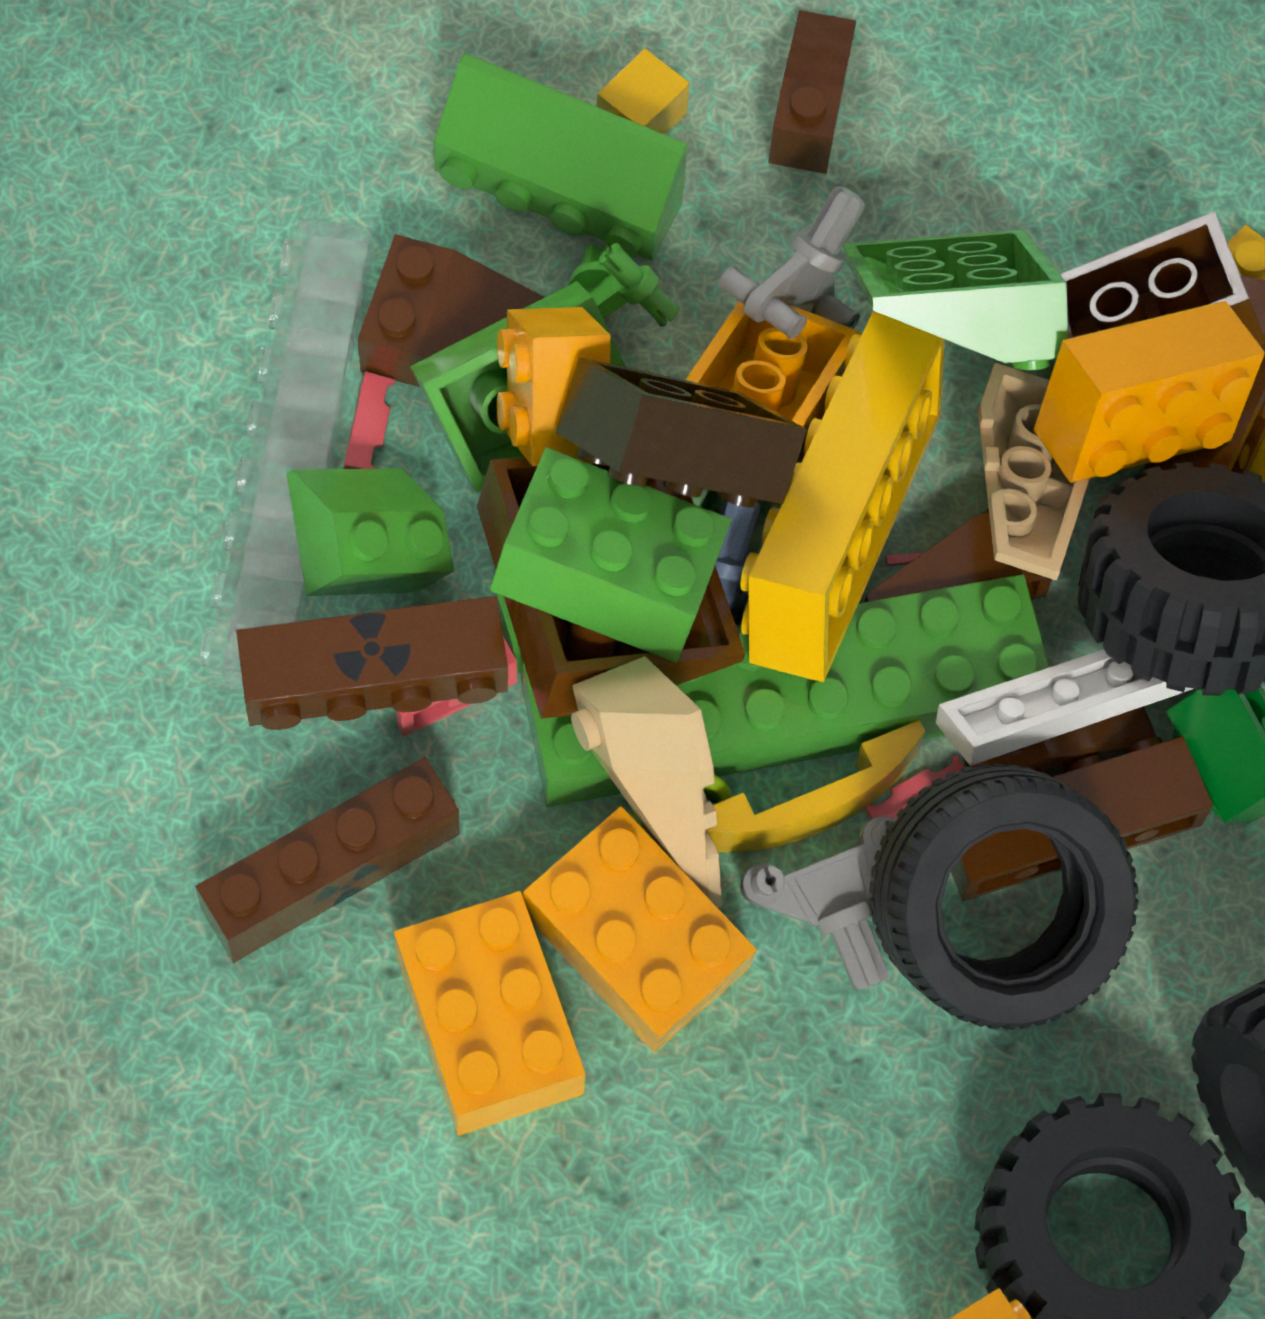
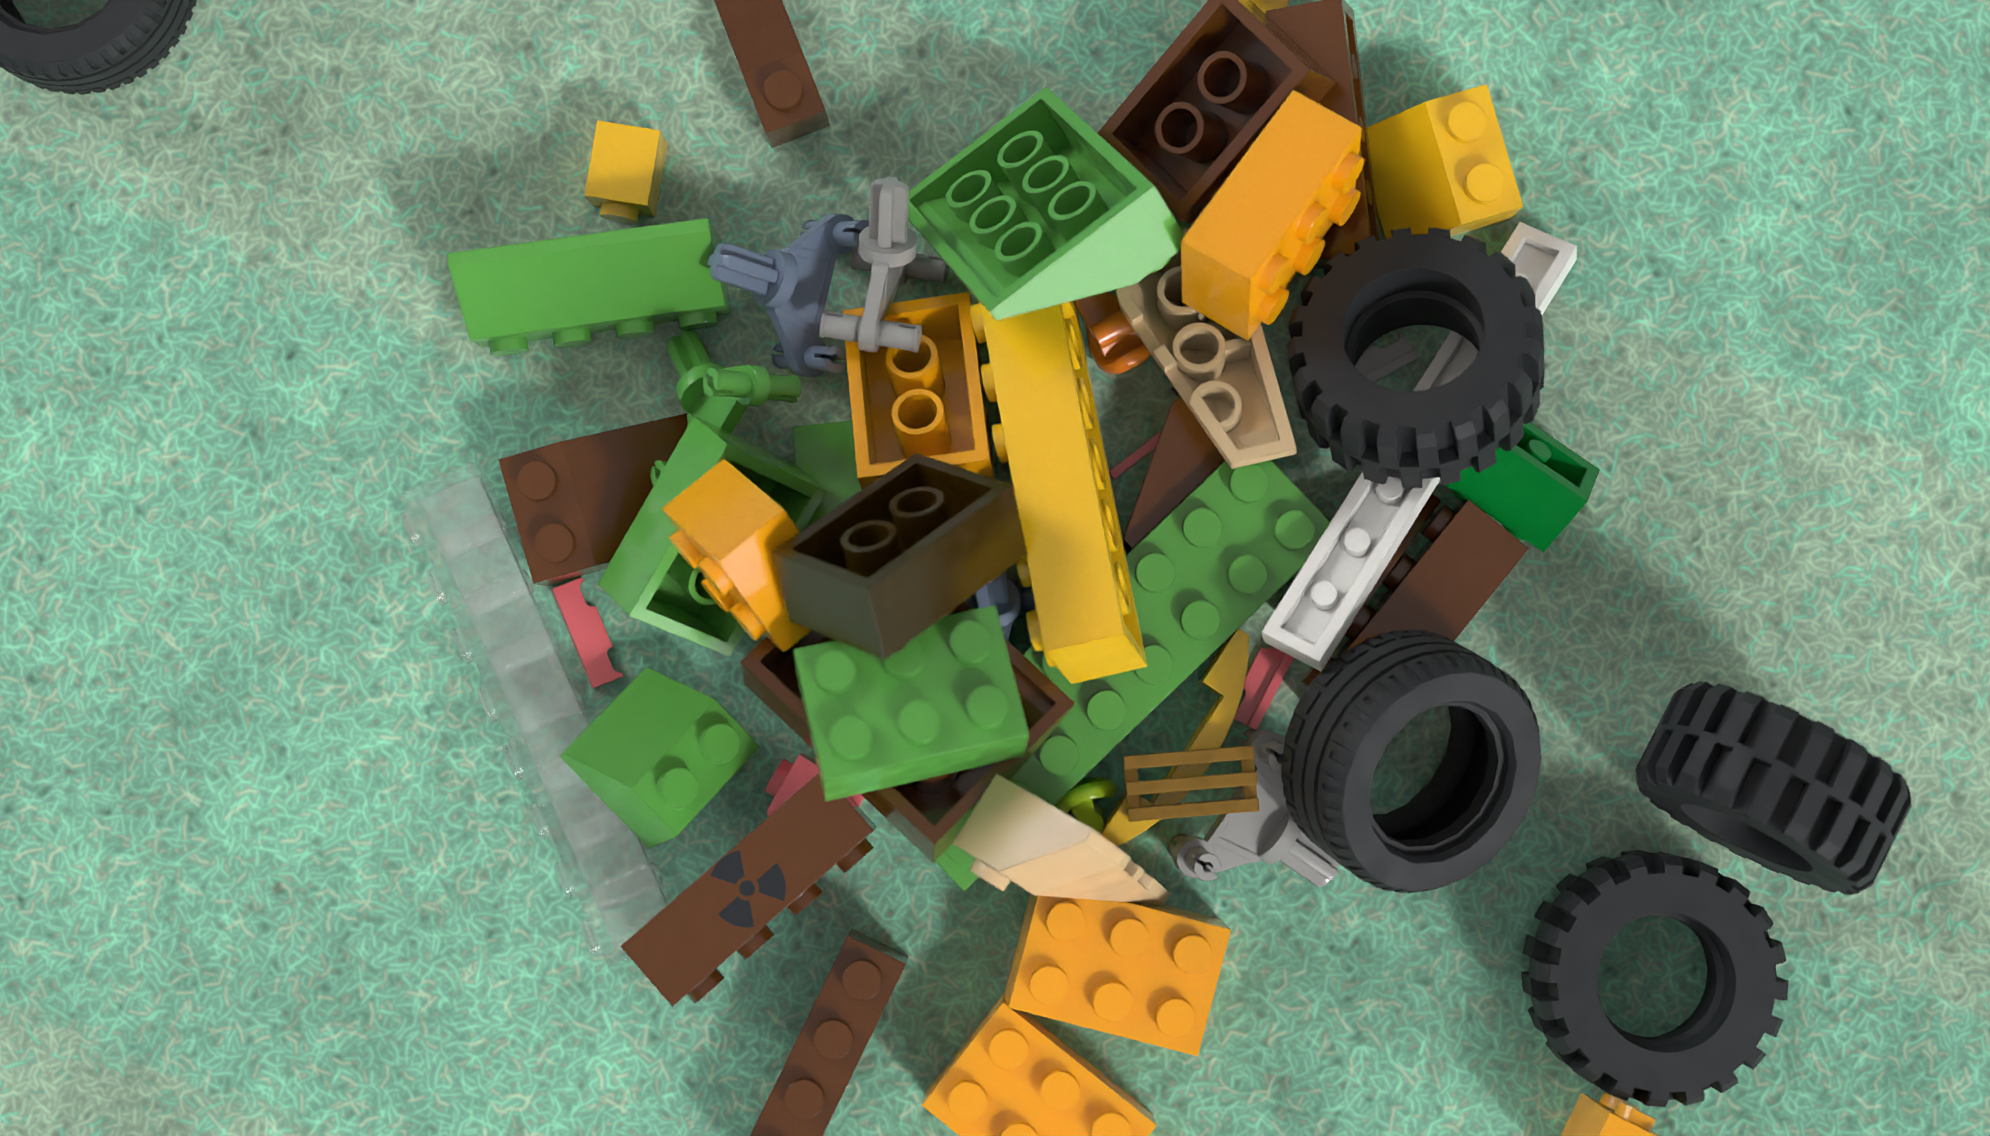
camera: 25 degrees left, 20 degrees up
(713, 245) = (794, 288): none -> sand blue axle
(810, 790) = (1246, 779): none -> pearl gold tile
(959, 443) = (1110, 335): none -> orange piece

